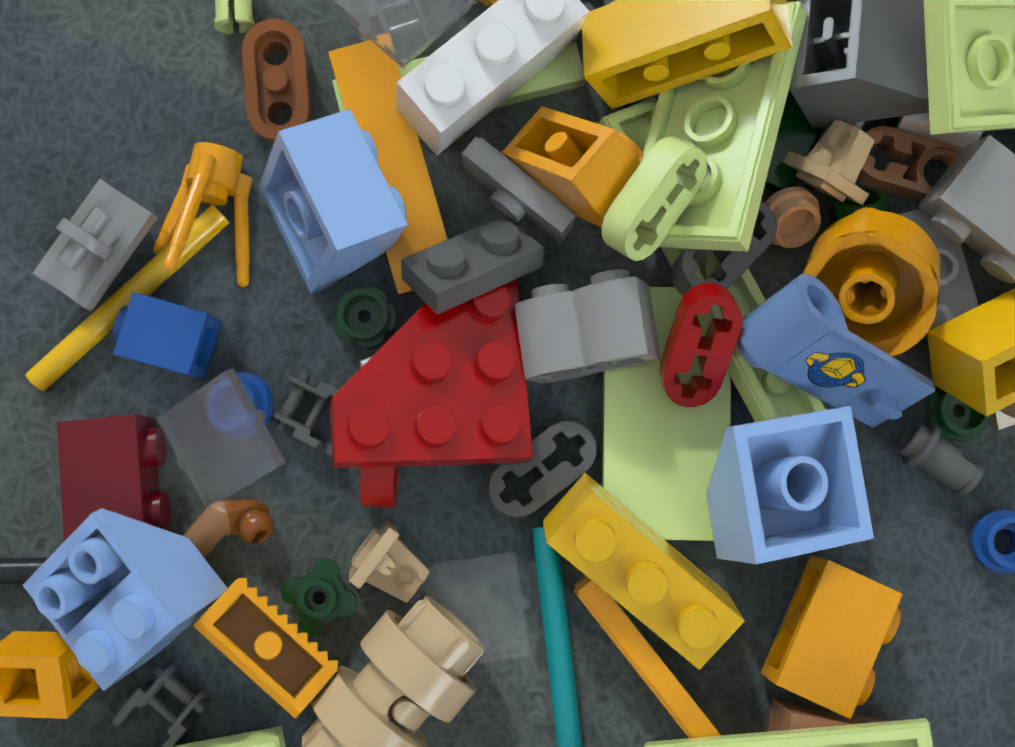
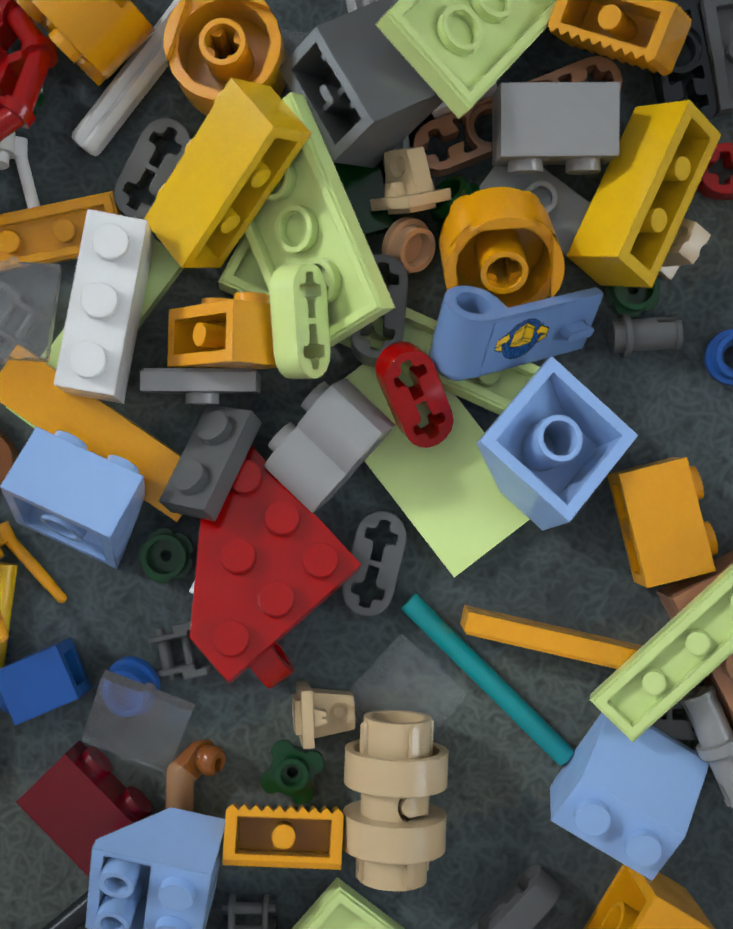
camera: 35 degrees left, 5 degrees up
(641, 571) = (496, 582): yellow brick -> none

